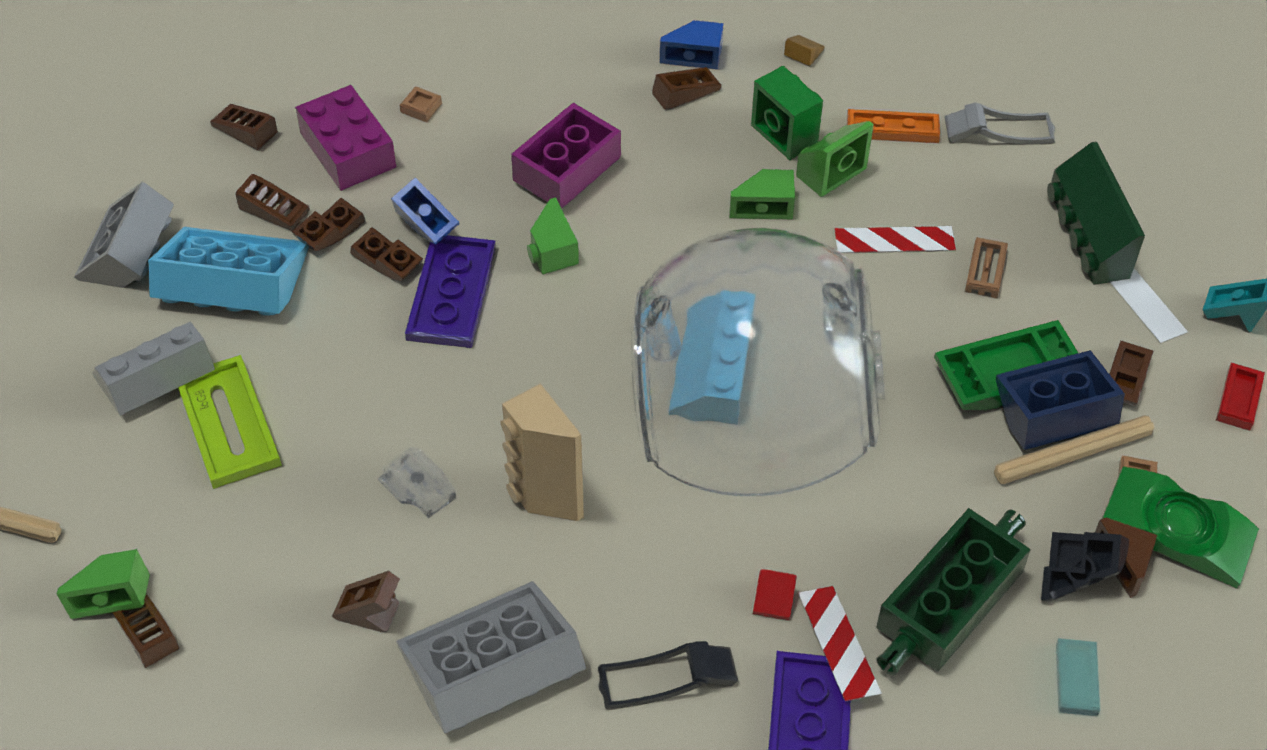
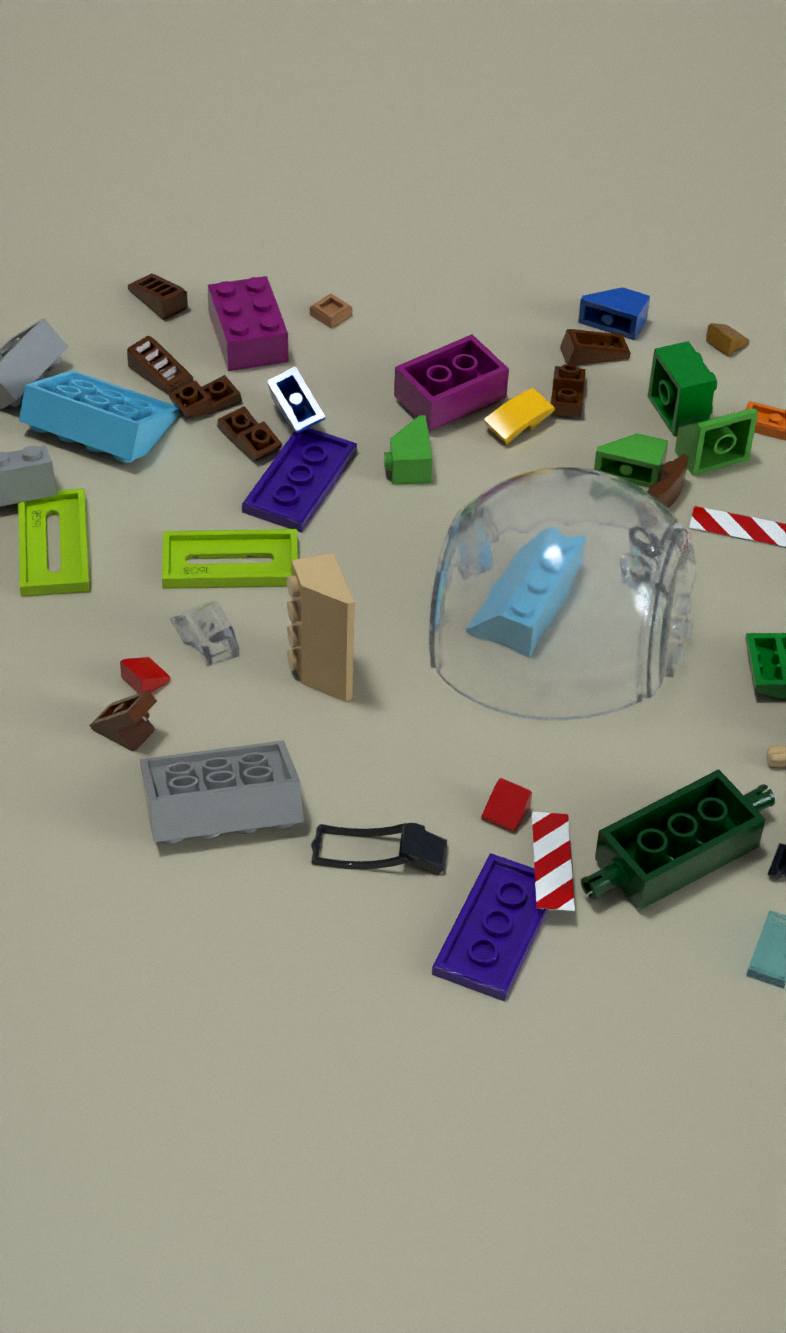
camera: 15 degrees right, 5 degrees down
(368, 545) = (143, 674): none -> red slope
(451, 367) = (217, 544): none -> lime piece
(640, 174) = (519, 413): none -> yellow slope
(676, 137) = (568, 390): none -> reddish brown slope
(807, 207) = (671, 481): none -> reddish brown slope

